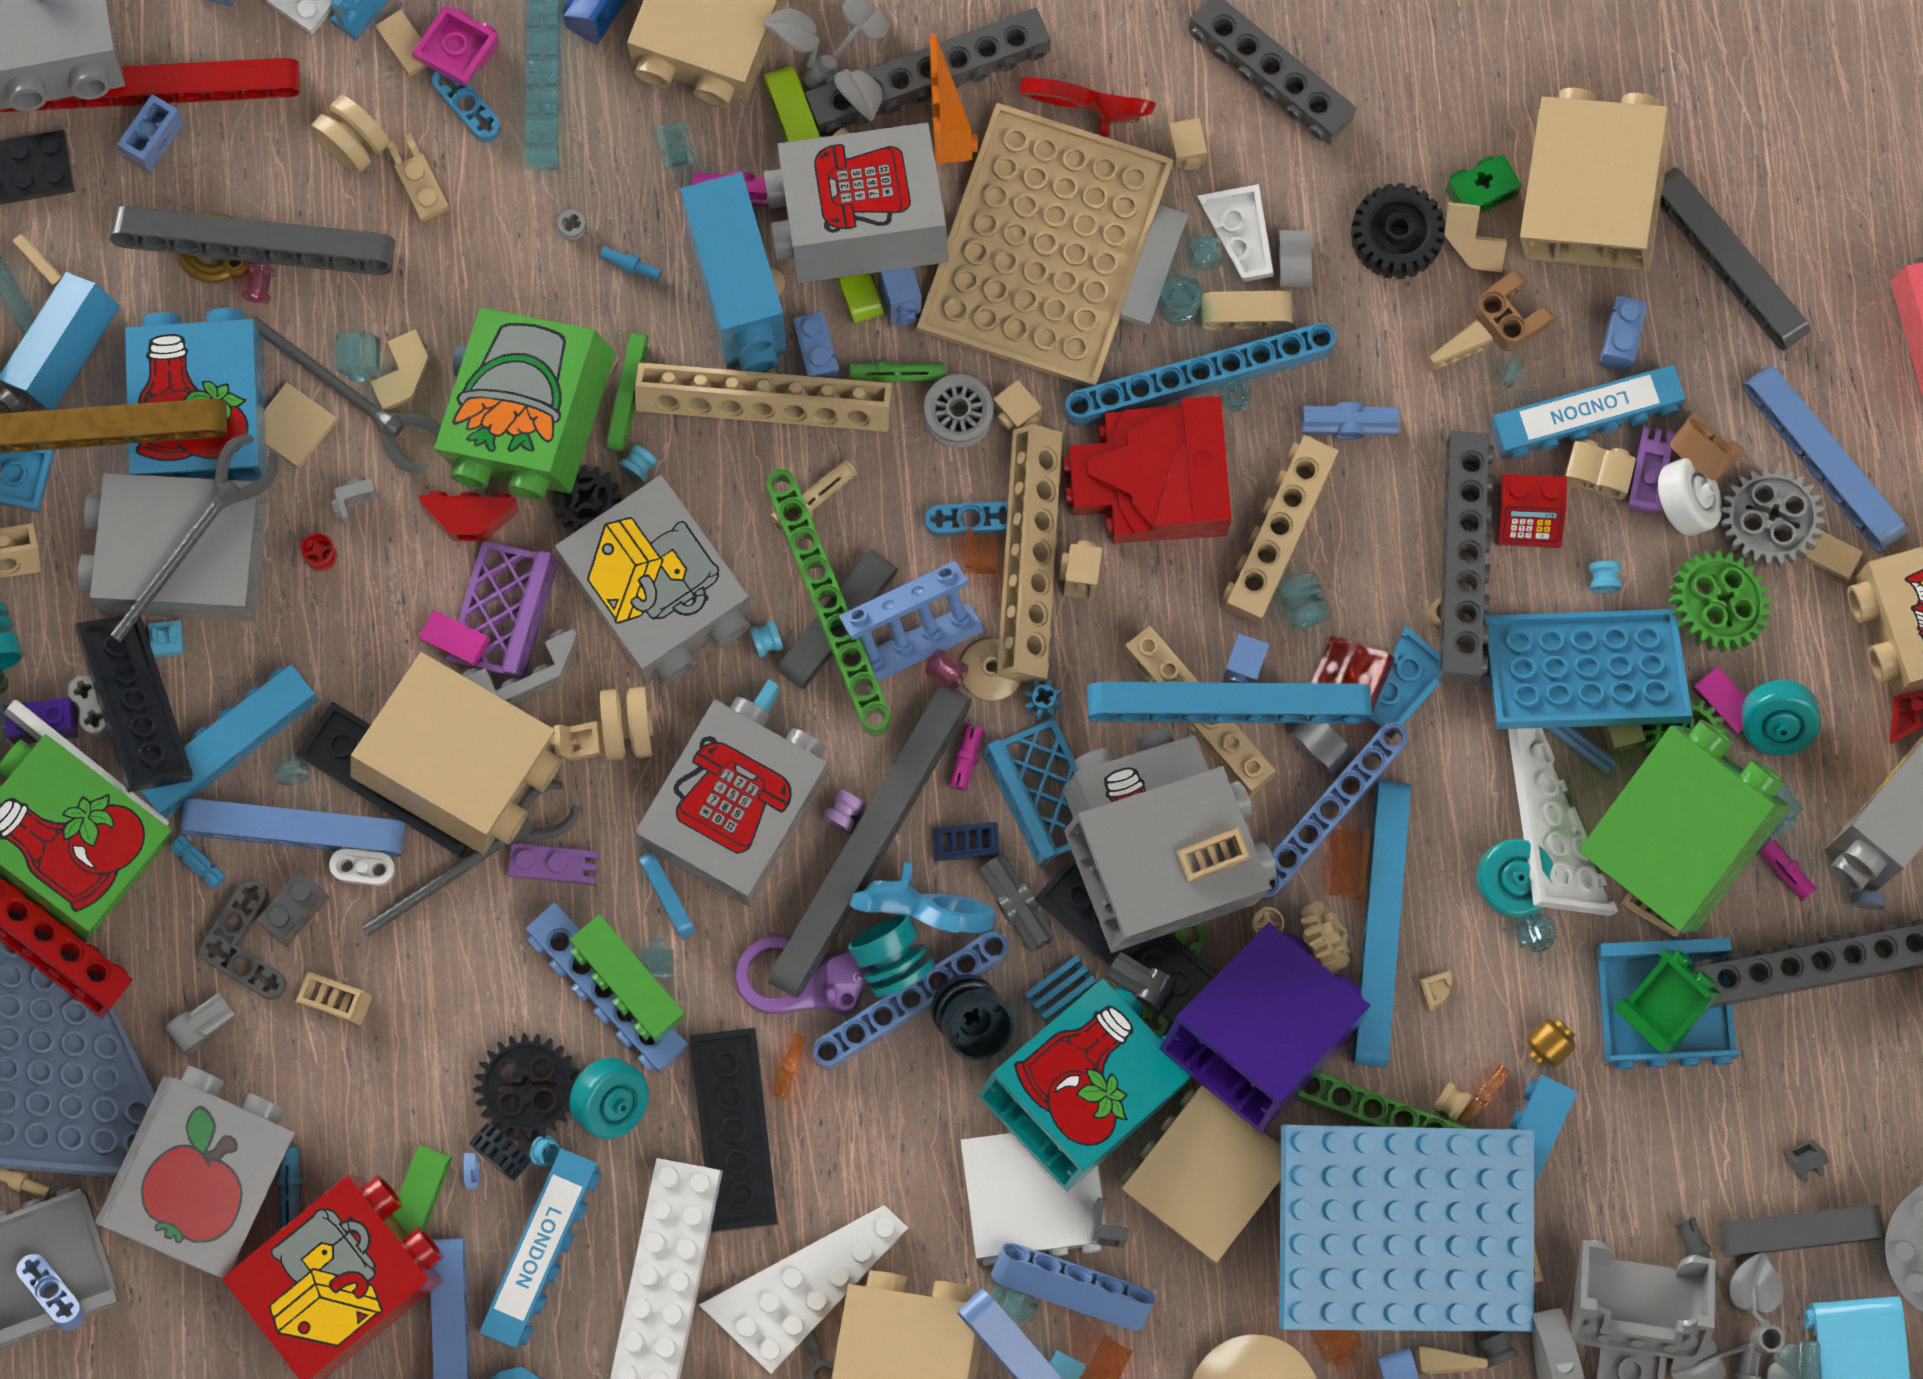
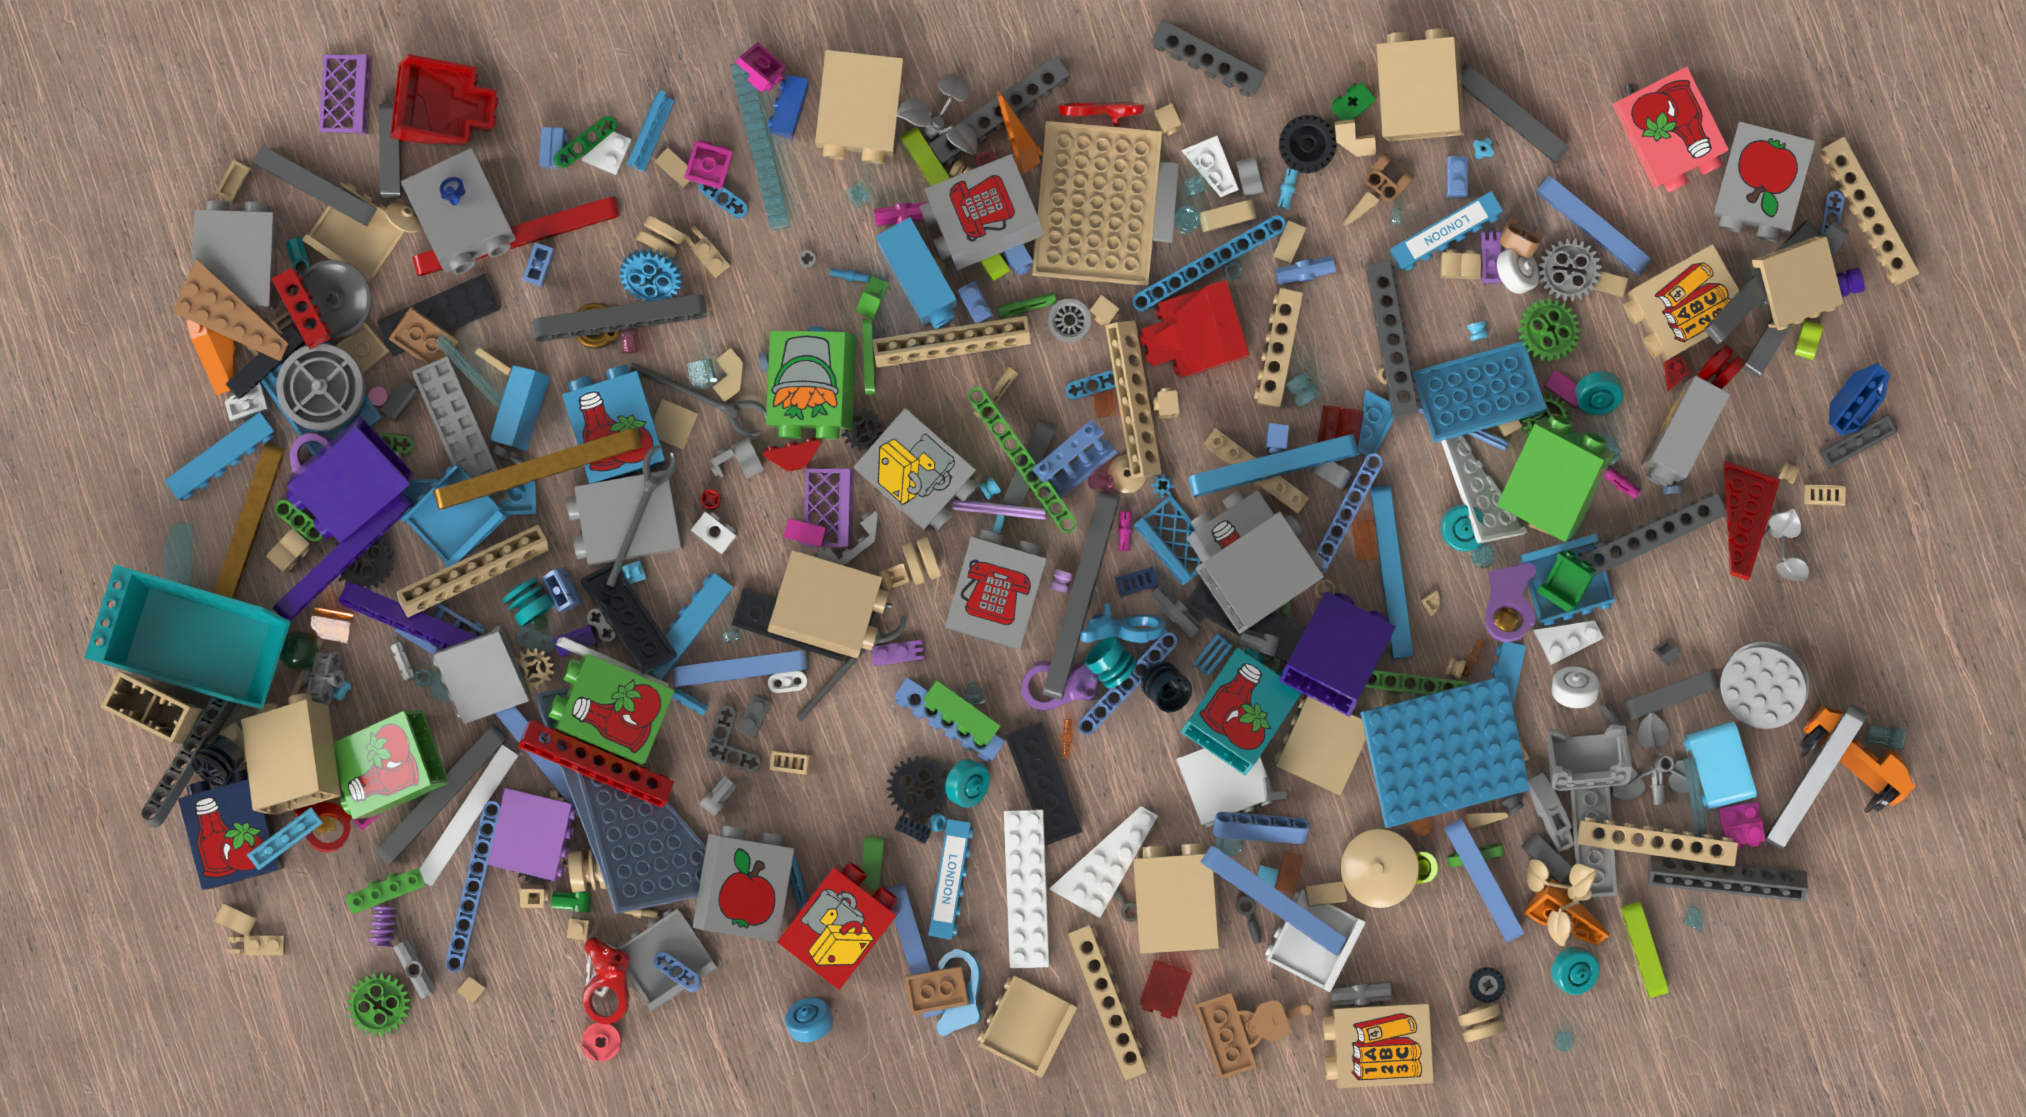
camera: 15 degrees left, 10 degrees up
(42, 634) = (562, 589): none -> medium blue brick
(301, 161) = (644, 269): none -> dark azure gear
(318, 622) = (719, 543): none -> white brick
(394, 502) = (747, 458): none -> light grey axle
(471, 1171) = (898, 844): light blue tile -> none
(638, 463) = (886, 399): medium azure wheel -> none
(657, 305) = (872, 297): none -> bright green slope
(667, 895) = (970, 656): dark azure beam -> none
(778, 674) = (1000, 509): none -> lavender axle
(1239, 845) = (1300, 557): tan slope -> none
(1325, 936) = (1360, 589): tan gear -> none
(1335, 373) = (1289, 242): none -> tan tile
(1351, 291) = (1287, 189): none -> medium azure pin
(1531, 510) = (1425, 301): red slope -> none
(1565, 997) = (1507, 592): none -> medium lavender animal
(1644, 1180) = (1575, 687): none -> white wheel
(1646, 1101) = (1567, 639): none -> white wing
(1668, 309) = (1483, 153): none -> medium azure plate

